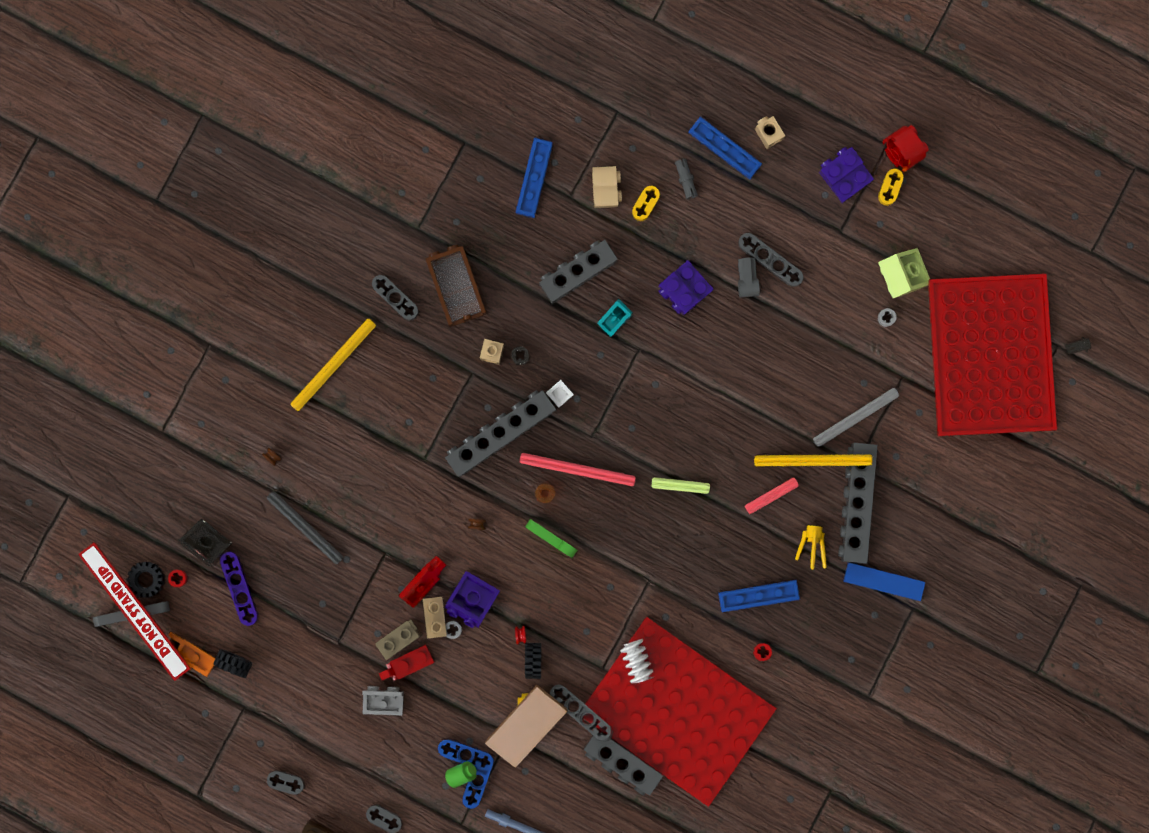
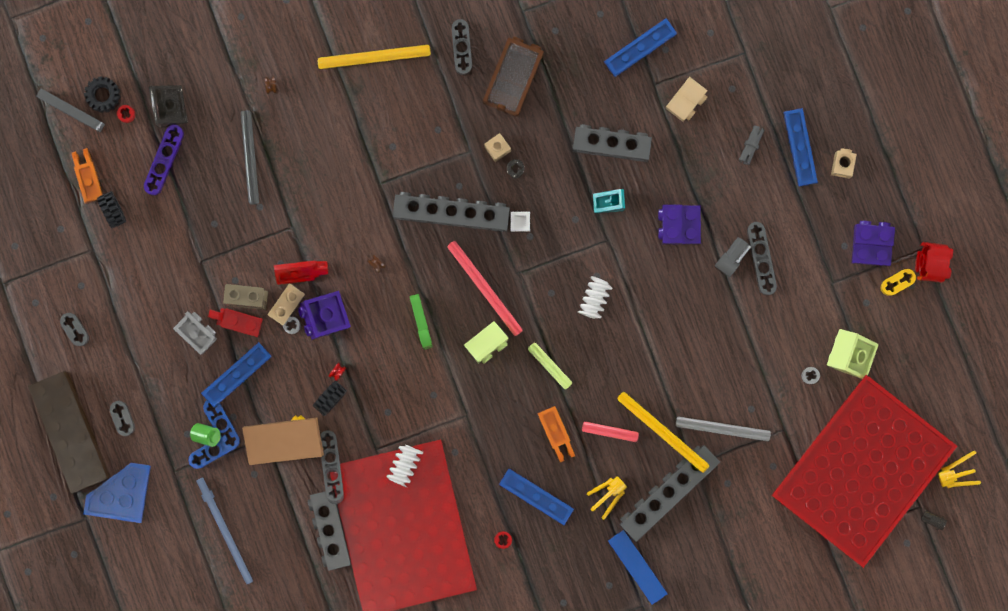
camera: 40 degrees right, 0 degrees up
(134, 611) = (74, 110): tile -> none
(443, 706) = (236, 375): none -> blue tile
(540, 488) = (450, 289): clear orange plate -> none
(616, 510) = (486, 342): none -> yellowish green slope
(649, 205) = (704, 133): yellow beam -> none
(670, 402) = (595, 298): none -> white piece
(729, 532) = (555, 431): none -> orange hinge
(1060, 303) = (948, 477): none -> yellow plant

